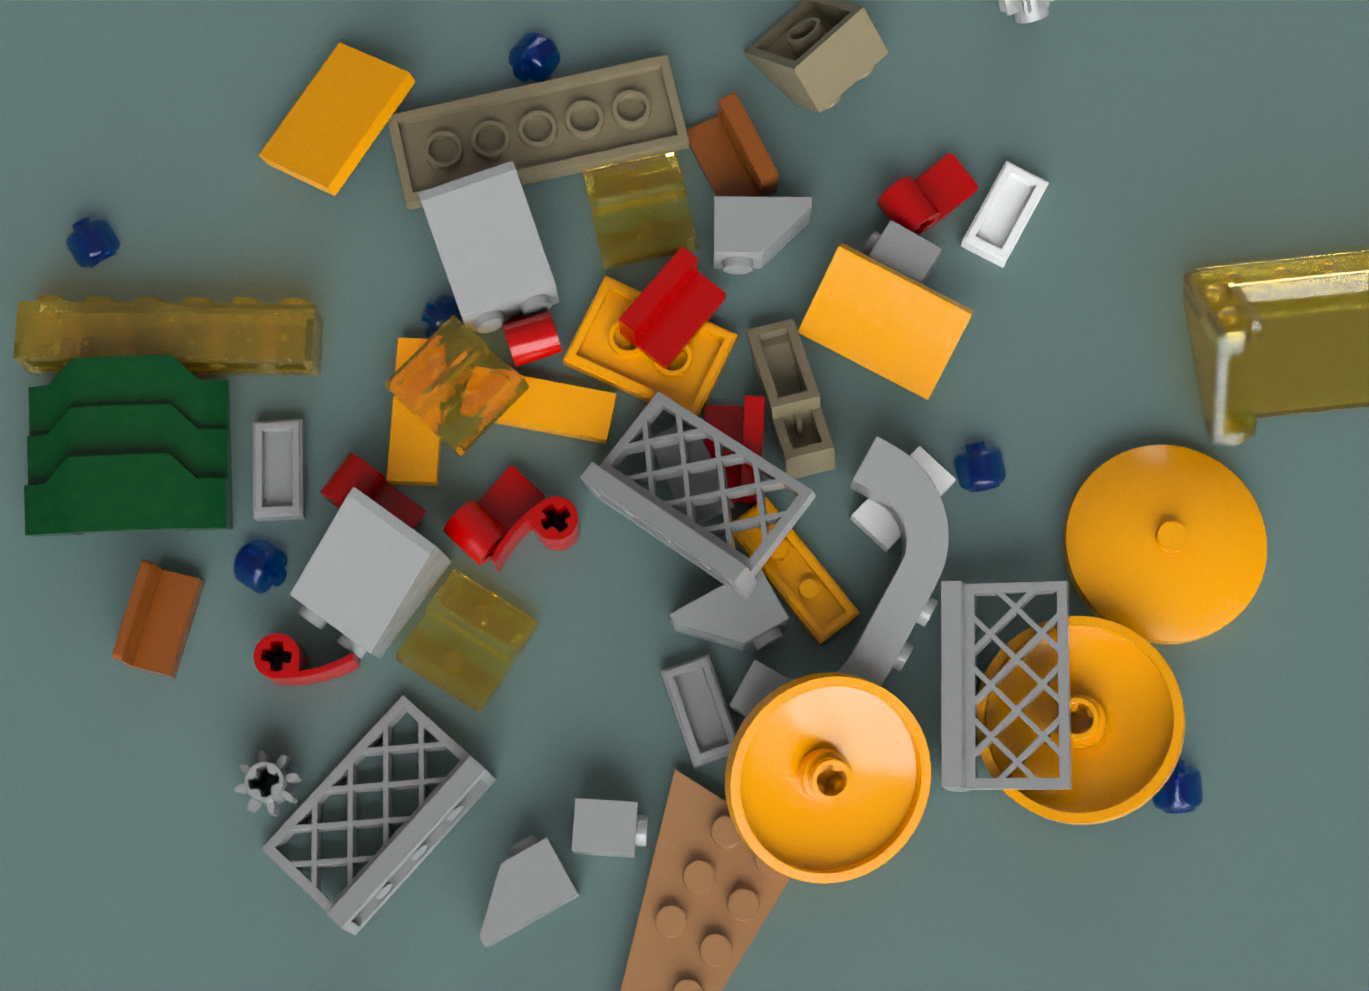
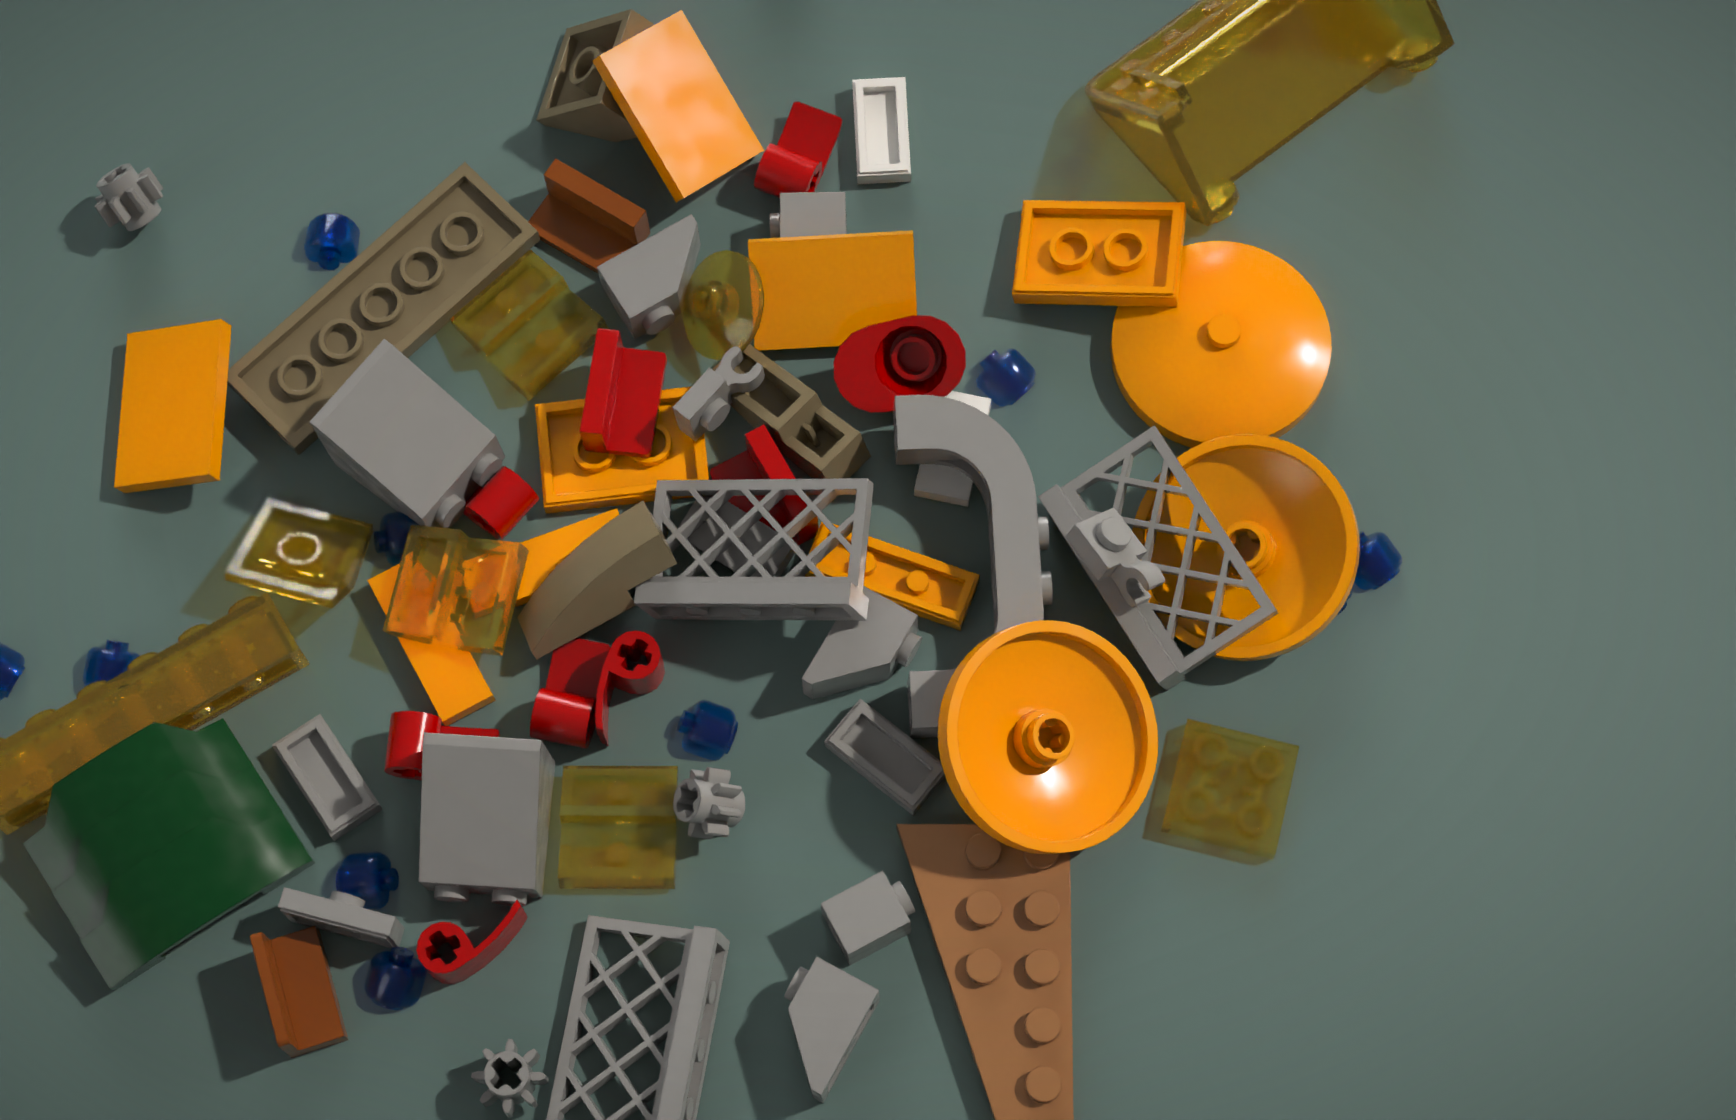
camera: 30 degrees left, 5 degrees down
(176, 285) = (107, 661): none -> clear blue piece
(223, 583) = (341, 915): none -> light grey plate
(233, 653) = (395, 979): none -> clear blue piece
(361, 288) = (301, 553): none -> clear yellow slope
(542, 666) = (709, 803): none -> light grey gear
(564, 442) = (595, 580): none -> dark tan slope
(580, 606) = (708, 730): none -> clear blue piece
(735, 351) = (709, 398): none -> light grey plate
(793, 283) = (723, 304): none -> clear yellow dish
(854, 104) = (678, 105): none -> light orange tile
(900, 409) = (899, 359): none -> red piece
(950, 900) = (1230, 788): none -> clear yellow tile
(972, 661) = (1115, 551): none -> light grey plate
(1114, 414) = (1099, 253): none -> light orange tile

